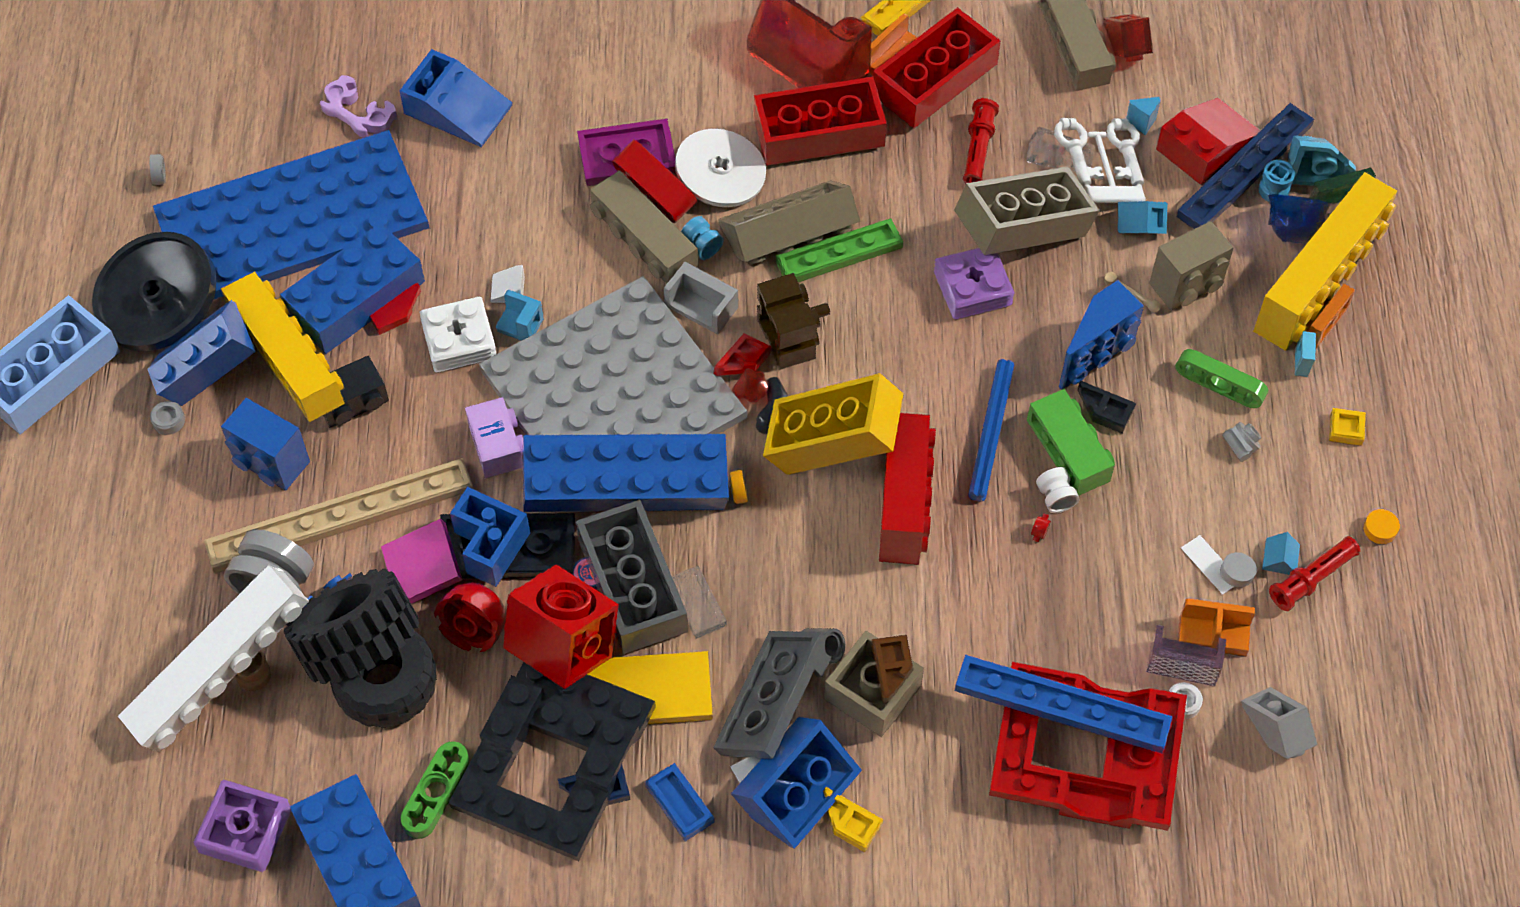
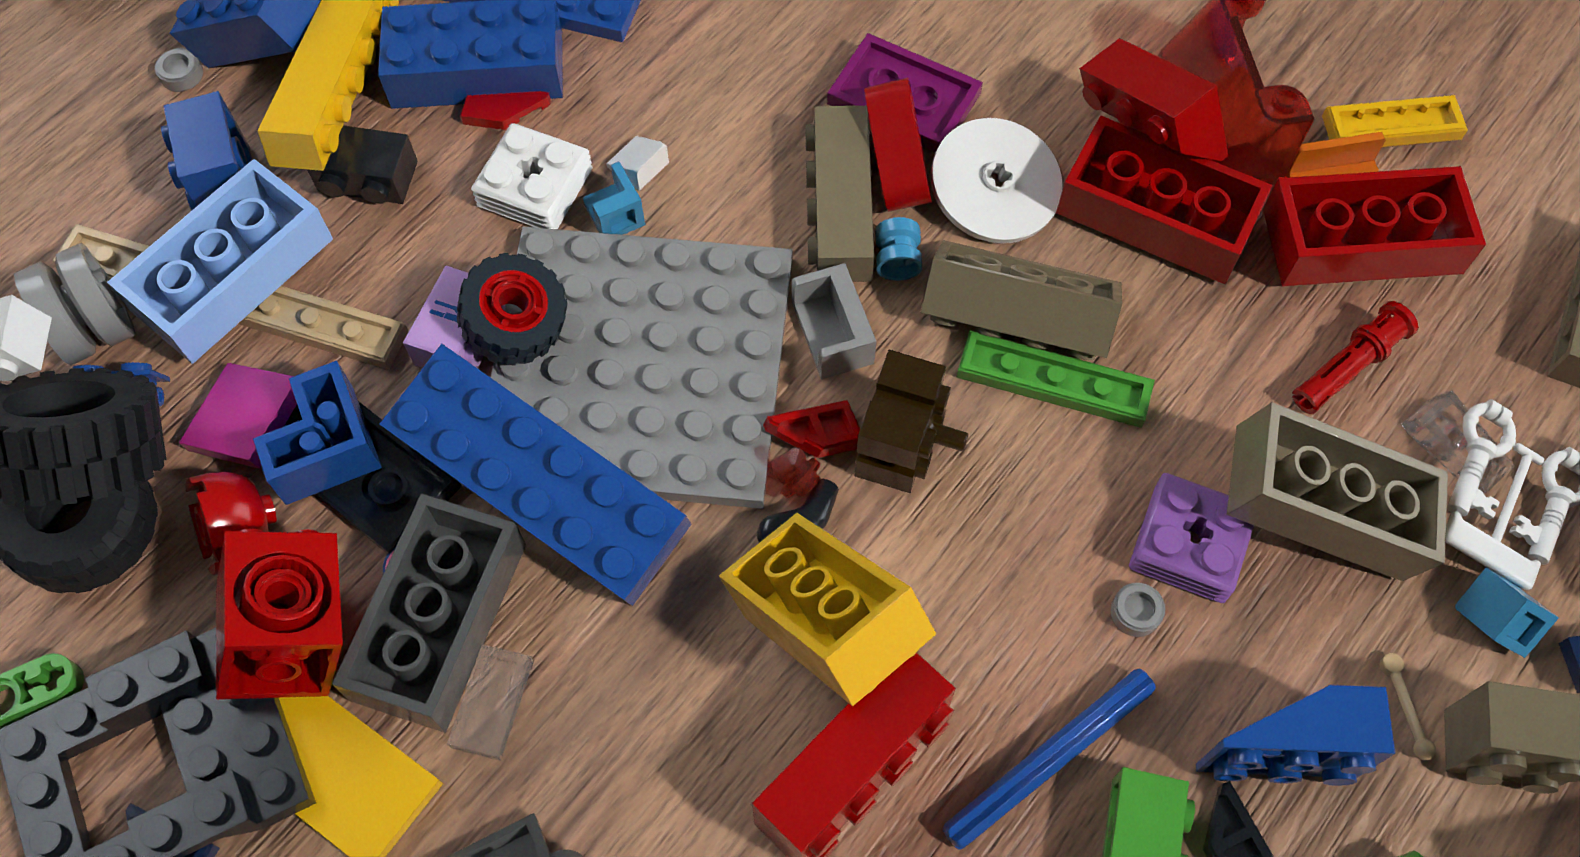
camera: 40 degrees right, 5 degrees up
(334, 488) = (222, 260): none -> light blue brick
(530, 401) = (514, 282): none -> black wheel
(738, 487) = (664, 591): light orange tile -> none
(777, 67) = (1156, 99): none -> red slope
(974, 335) = (1137, 609): none -> light grey tile

